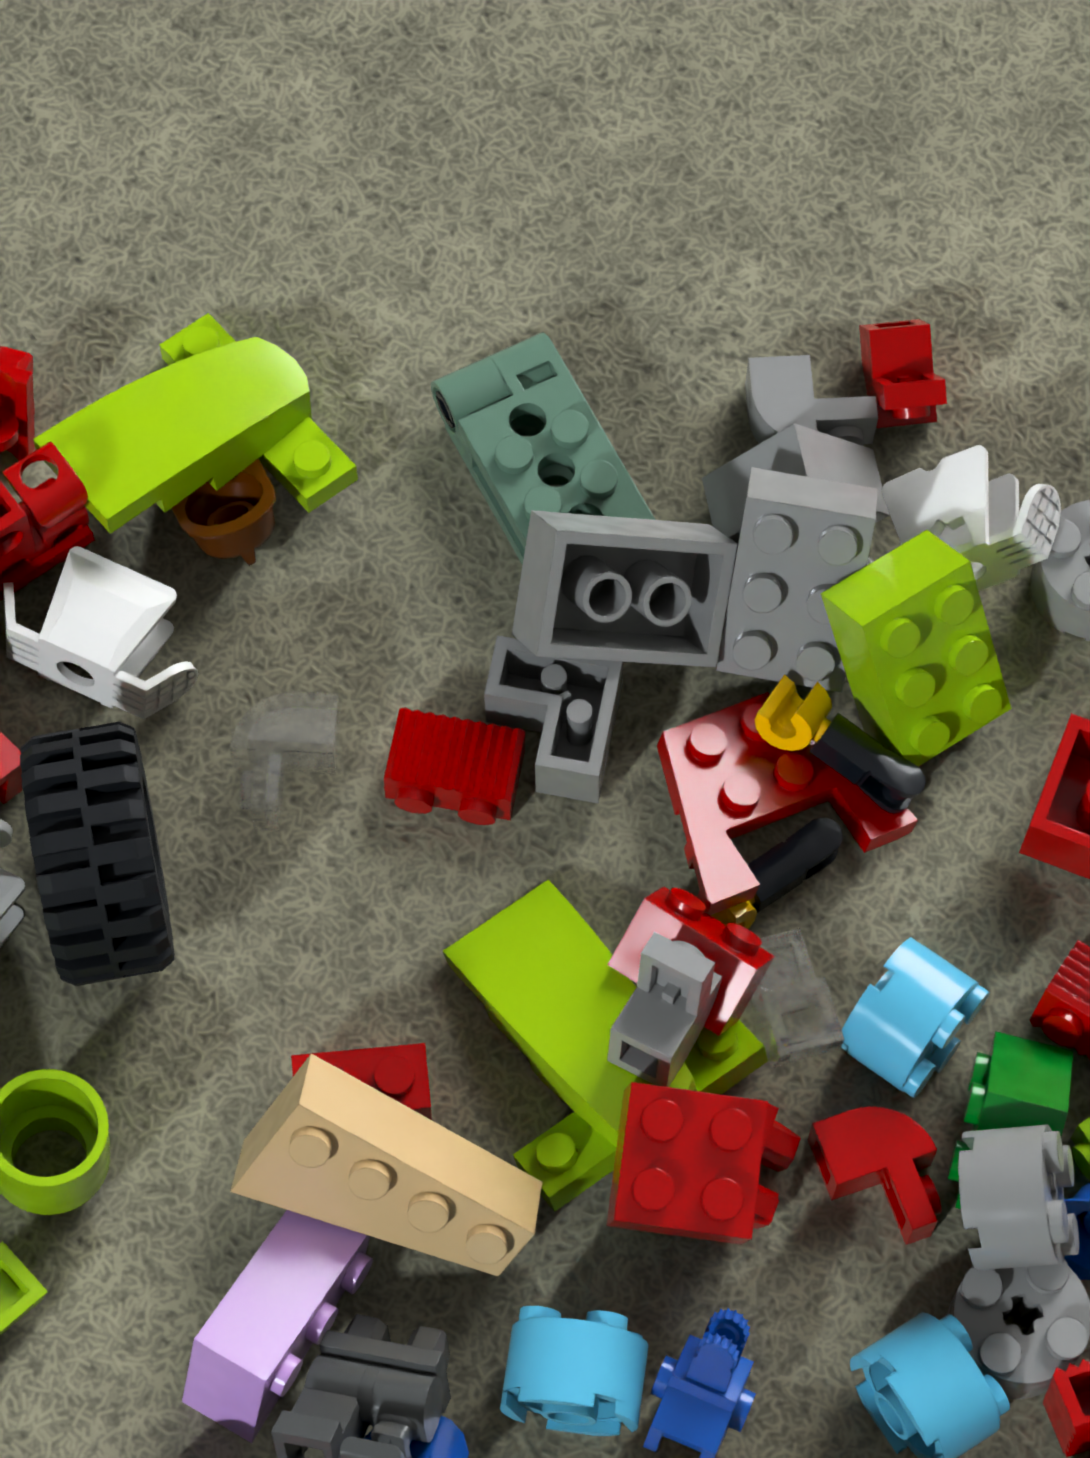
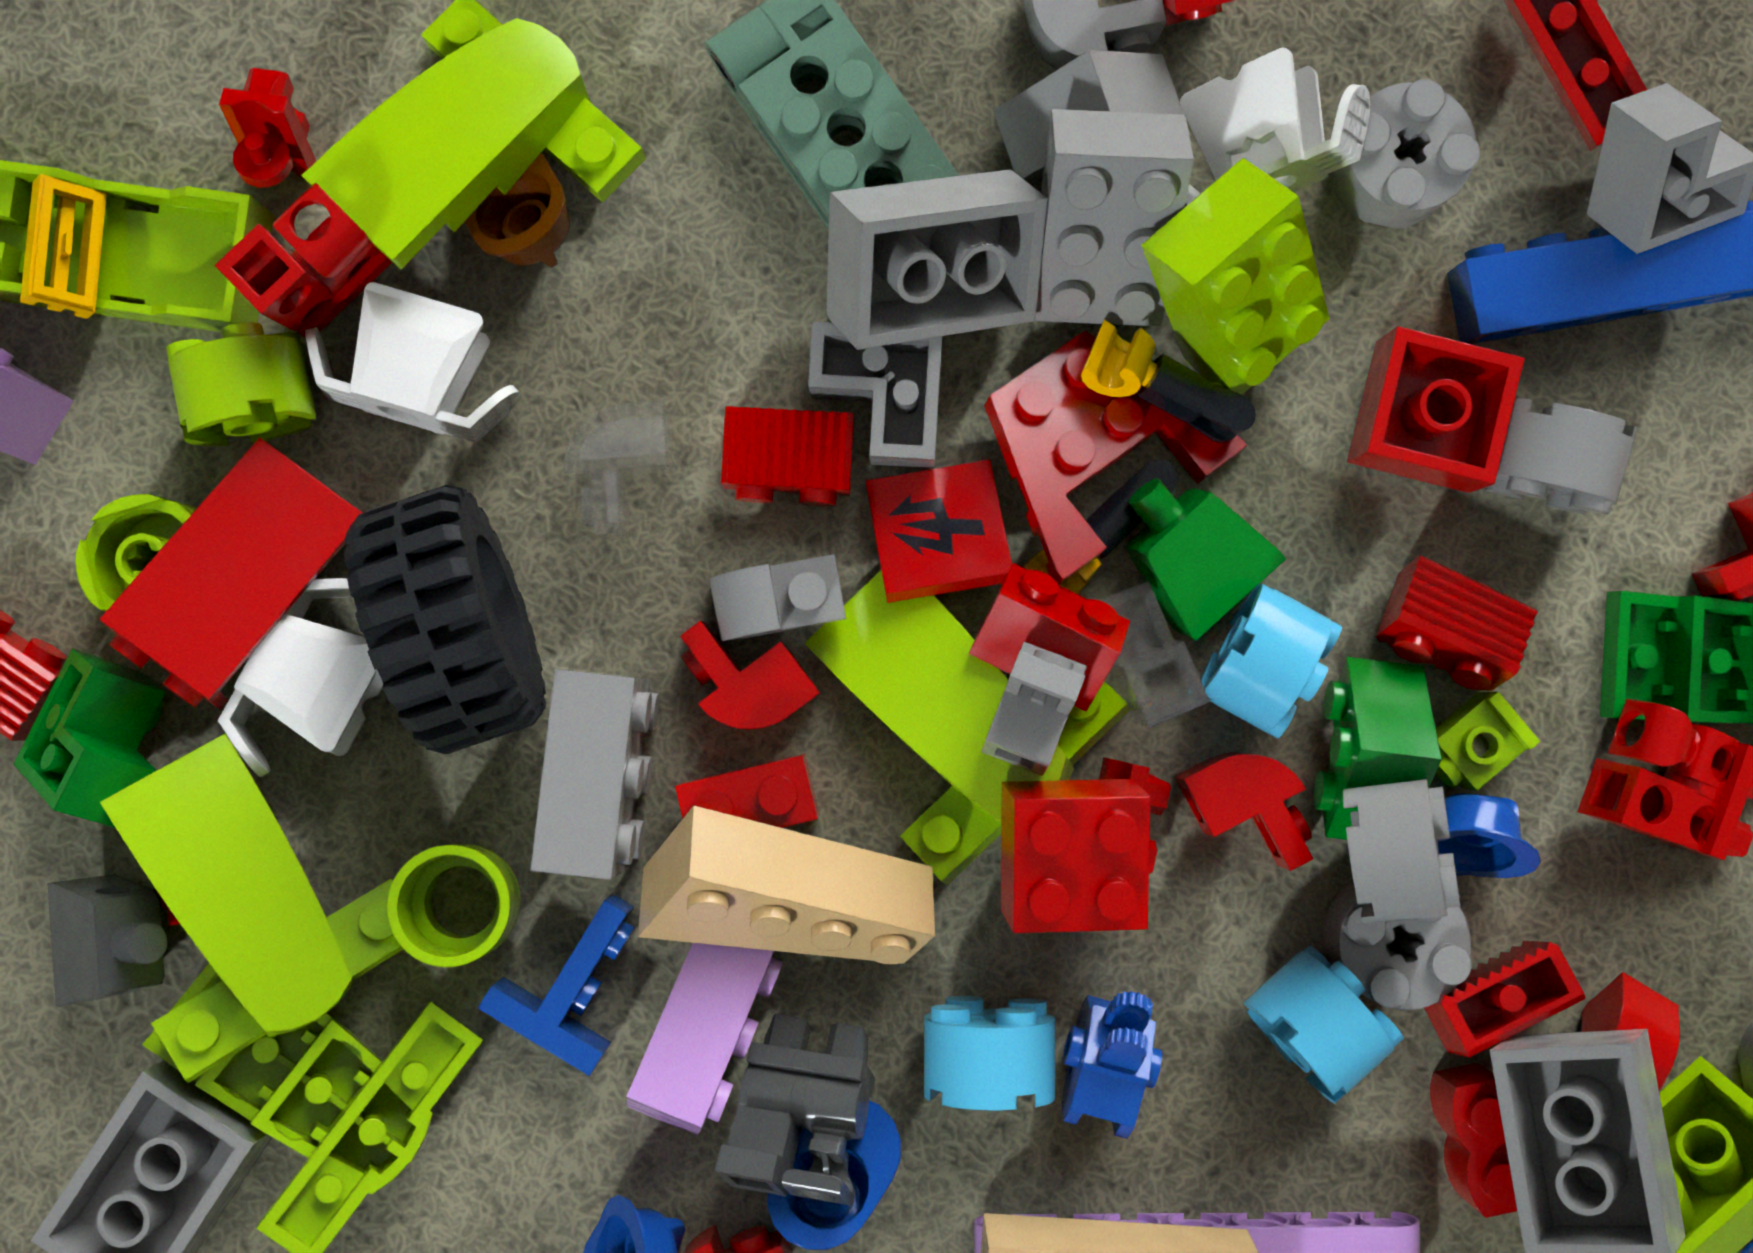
camera: 10 degrees left, 20 degrees up
(147, 1258) = (548, 1020): none -> blue bracket
(212, 1034) = (593, 774): none -> light grey brick
(384, 991) = (750, 698): none -> red brick
(408, 892) = (776, 598): none -> light grey brick
(593, 857) = (939, 531): none -> red tile
(852, 910) = (1197, 555): none -> green torso

